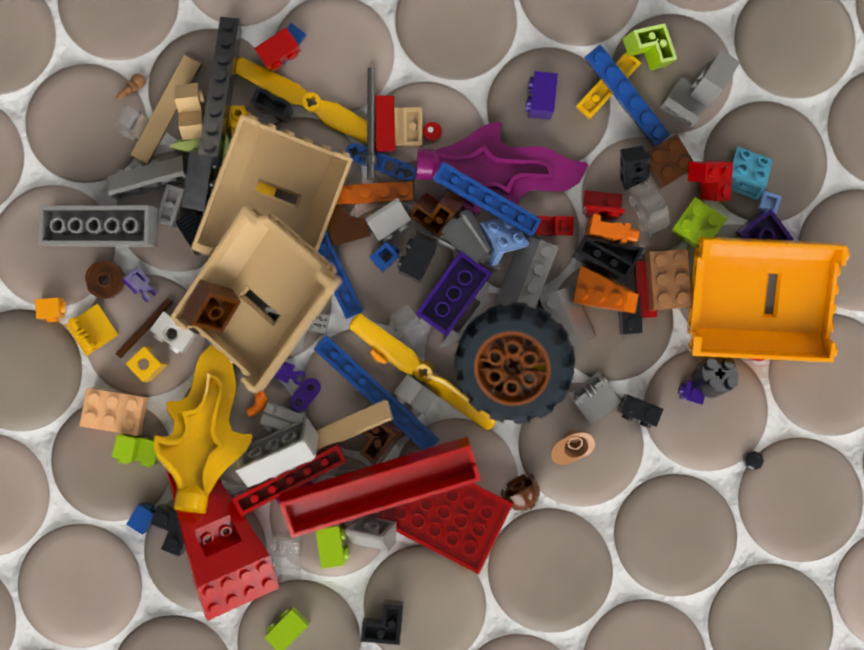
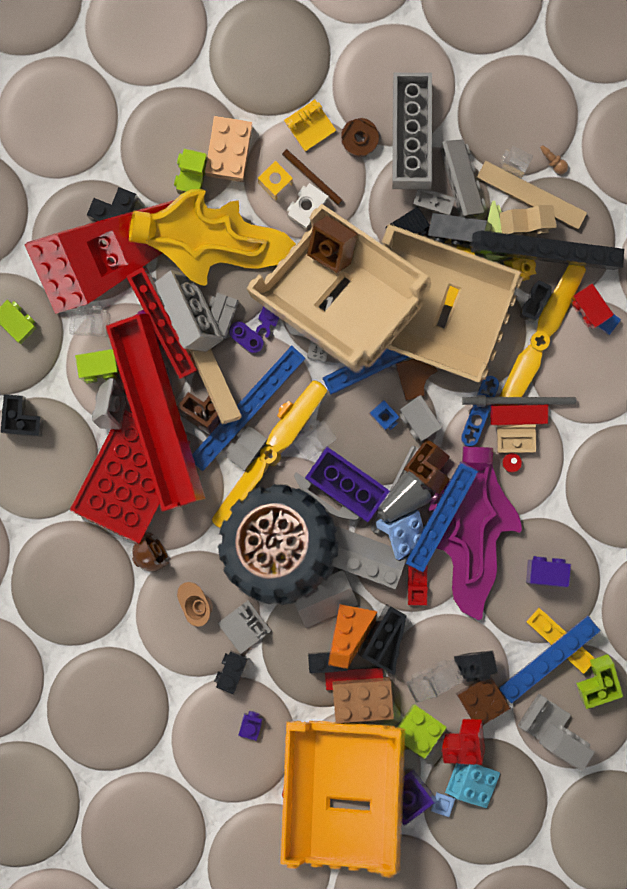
camera: 85 degrees right, 0 degrees up
(50, 309) = (330, 84): light orange brick -> none
(137, 282) = (357, 169): plate -> none
(142, 517) = (124, 178): blue brick -> none
(259, 405) = (236, 292): orange arm -> none
(375, 193) = (449, 406): orange plate -> none
(417, 258) = (381, 447): black brick -> none
(602, 204) = (440, 634): red bracket -> none
(613, 232) = (410, 643): orange hips -> none
(715, 376) = (266, 747): black brick -> none
(753, 460) = (182, 786): black tile -> none

